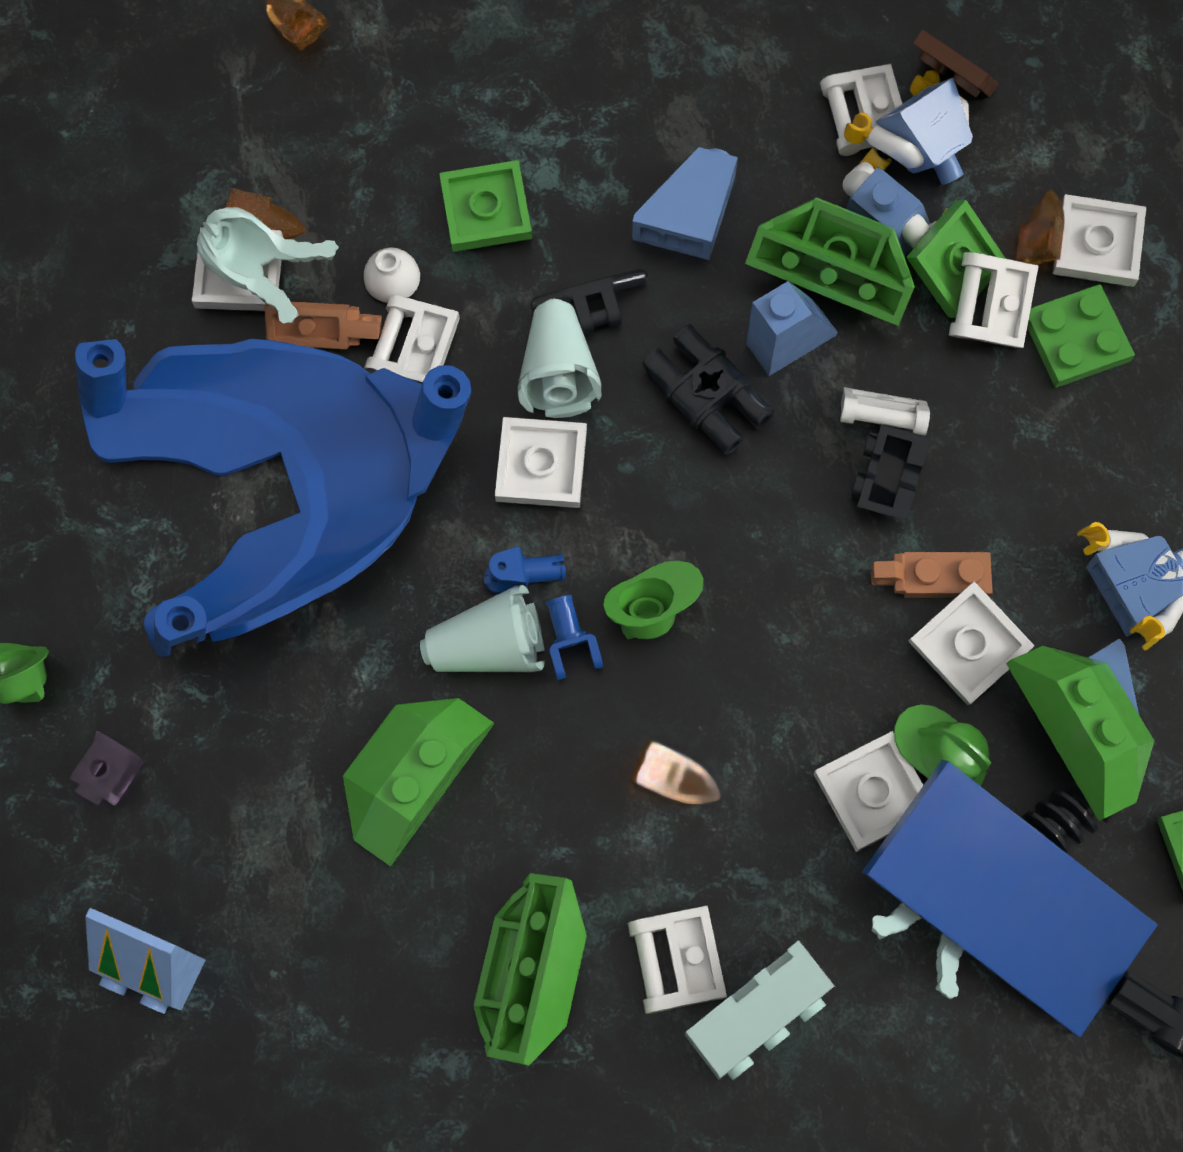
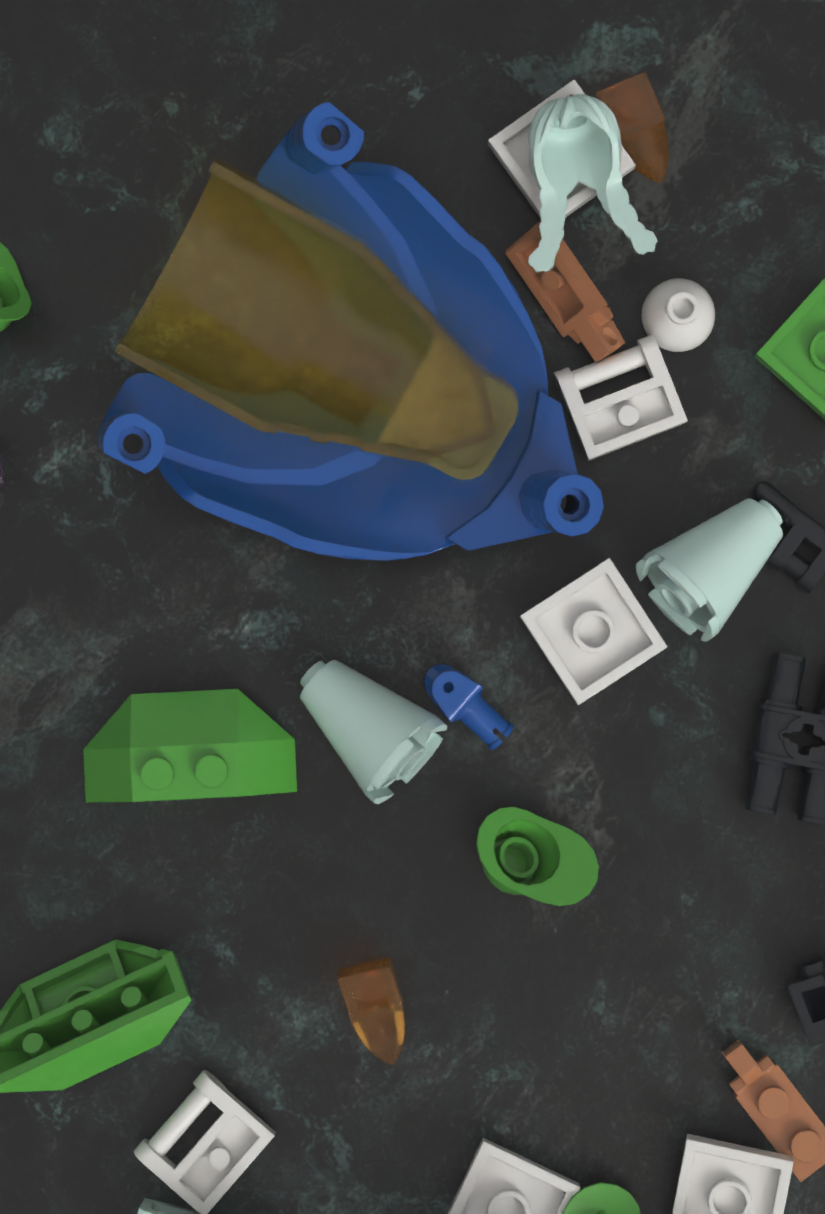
camera: 55 degrees right, 15 degrees up
(210, 472) = (313, 335): none -> clear yellow windscreen
(569, 634) = (437, 798): blue piece -> none

